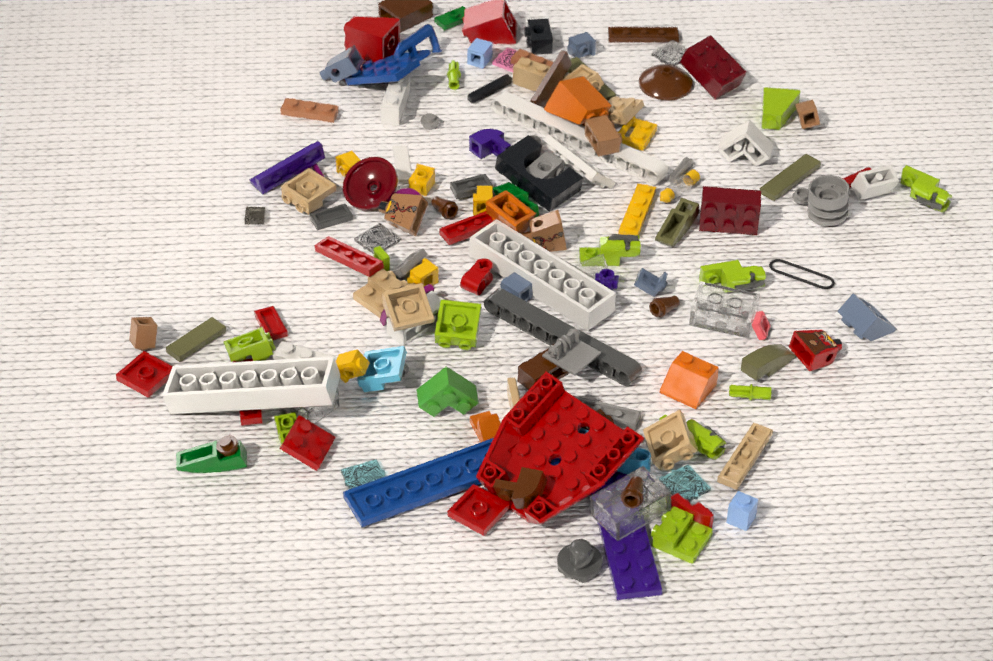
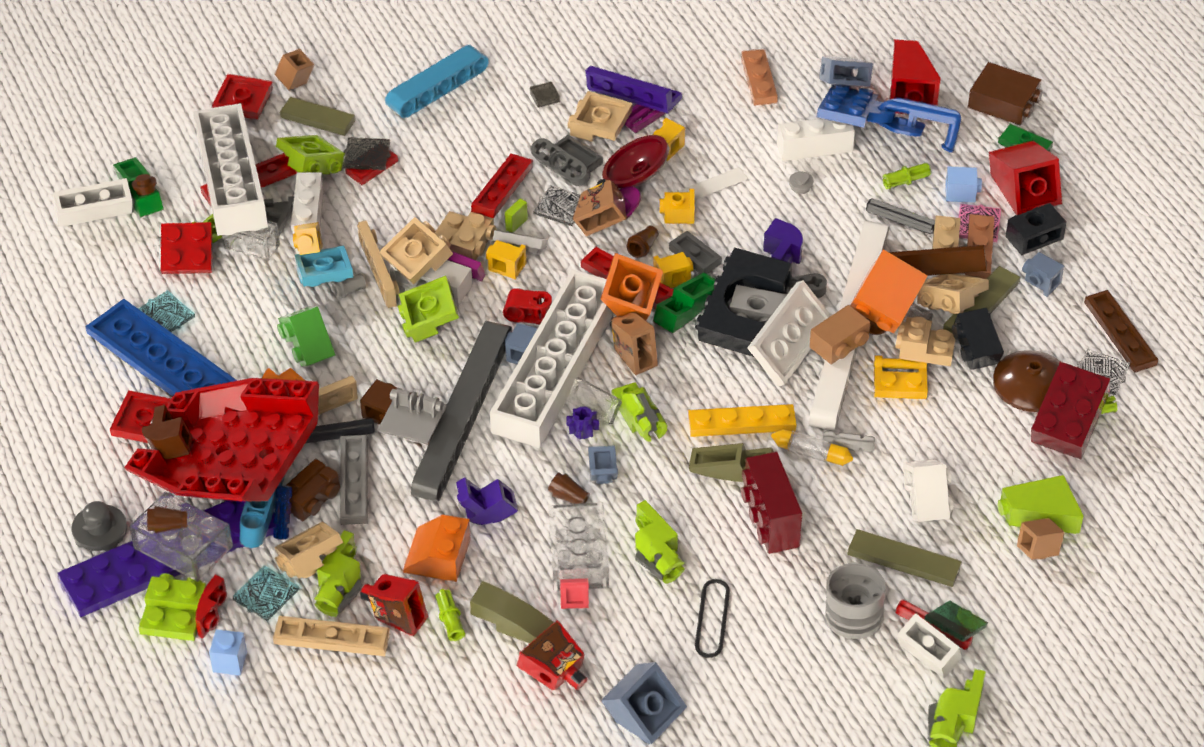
camera: 70 degrees right, 5 degrees up
(205, 263) = (436, 81): none -> dark azure beam
(222, 485) = (92, 202): none -> white brick
(263, 316) = (366, 153): none -> clear smoke piece
(322, 223) = (564, 171): none -> dark grey beam
(373, 341) = (368, 242): none -> tan plate
(627, 85) = (977, 338): none -> black brick
(660, 344) = (487, 504): none -> dark purple brick
(736, 409) = (397, 602): none -> red torso
(853, 168) = (956, 621): none -> clear green piece

